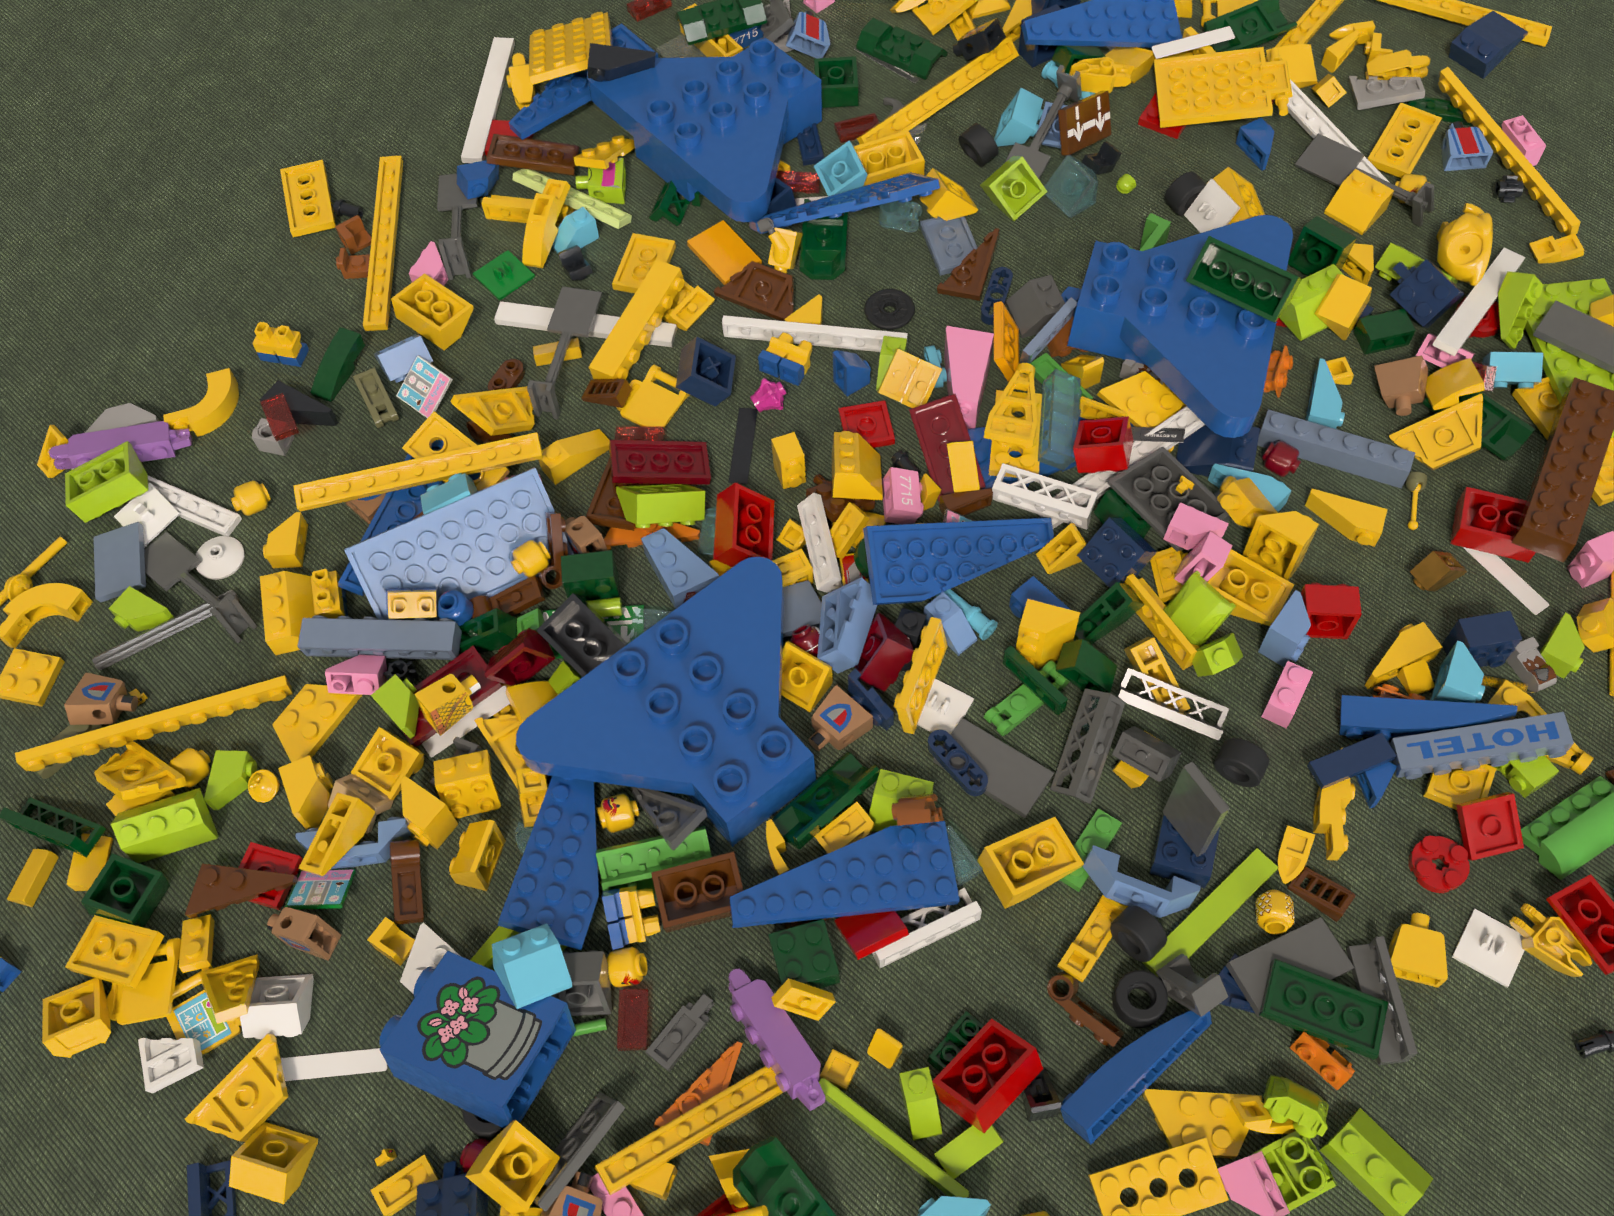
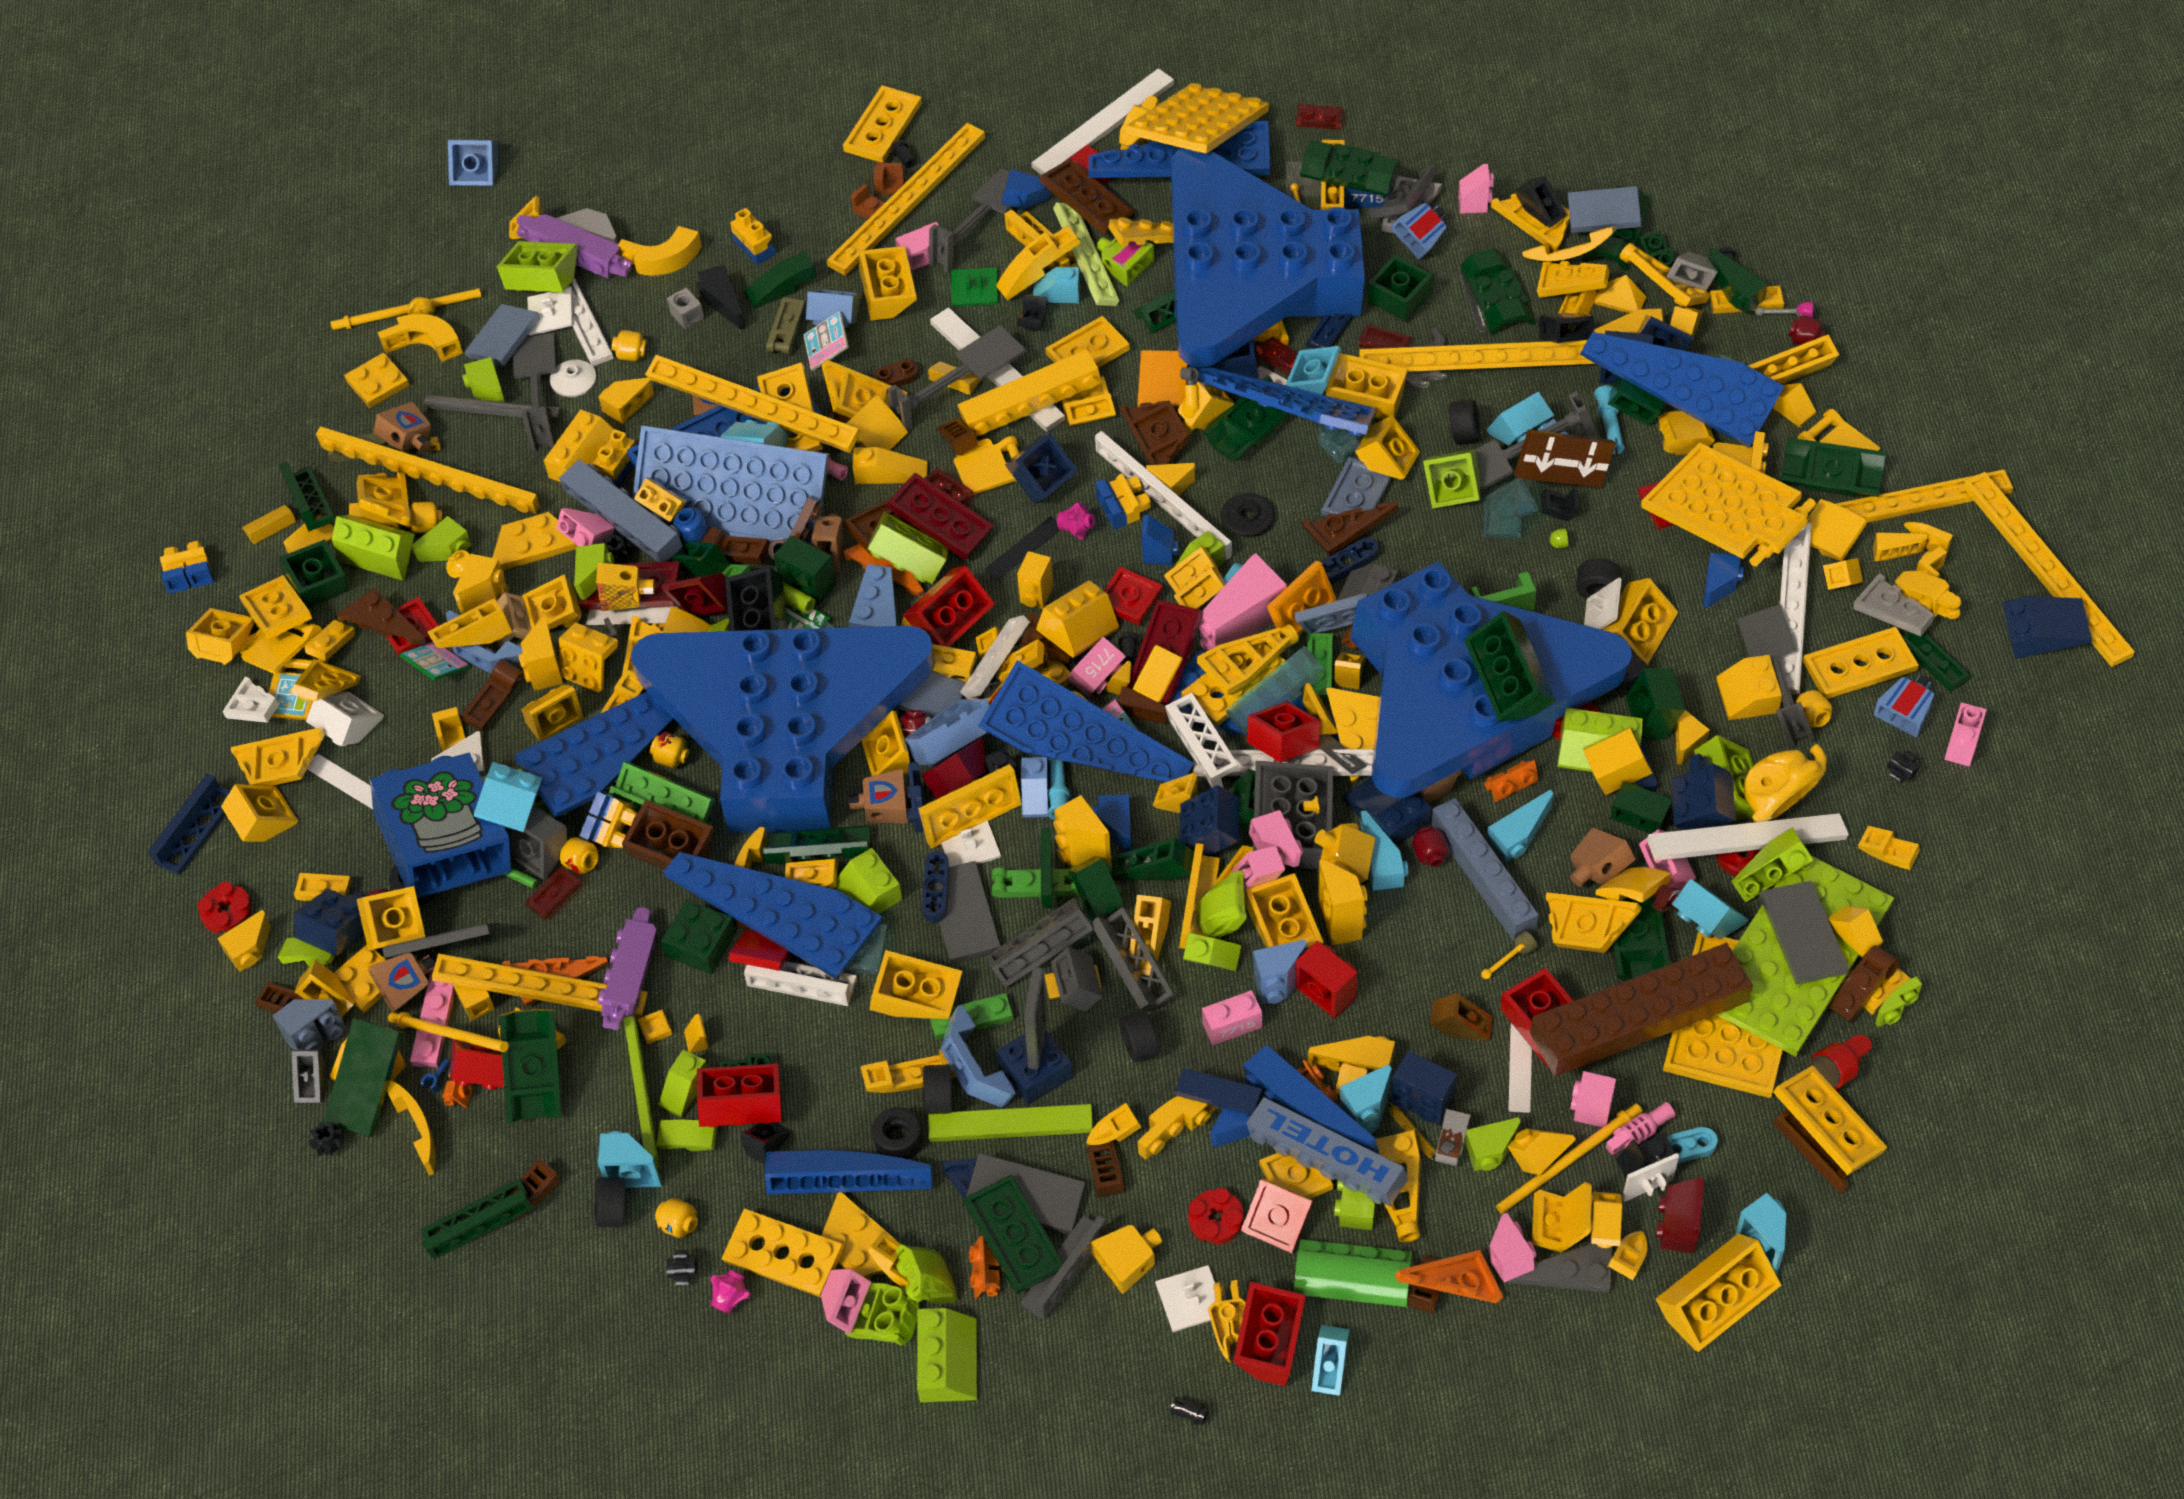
camera: 40 degrees right, 5 degrees down
(279, 417) = (698, 295): clear red tile -> none
(295, 928) = (396, 672): medium nougat torso -> none
(386, 1156) = (328, 862): yellow piece -> none
(530, 558) = (773, 523): yellow head -> none
(534, 418) = (878, 425): none -> yellow slope
(615, 62) = (1200, 156): black slope -> none
(670, 815) = (697, 774): dark grey wing -> none
(680, 1033) = (576, 924): dark grey hinge -> none
(803, 999) = (668, 958): yellow plate -> none
(916, 810) = (861, 889): dark orange cylinder -> none
(1082, 1013) = (849, 1091): reddish brown plate -> none
(1101, 74) = (1634, 425): yellow hinge -> none
(1189, 988) = (936, 1146): dark grey panel -> none
(1193, 42) = (1749, 448): white sticker -> none
(1274, 911) = (1054, 1152): yellow head -> none
(1340, 371) = (1562, 813): yellow slope -> none
(1350, 517) = (1440, 937): yellow slope -> none
(1511, 156) = (1937, 741): yellow plate -> none

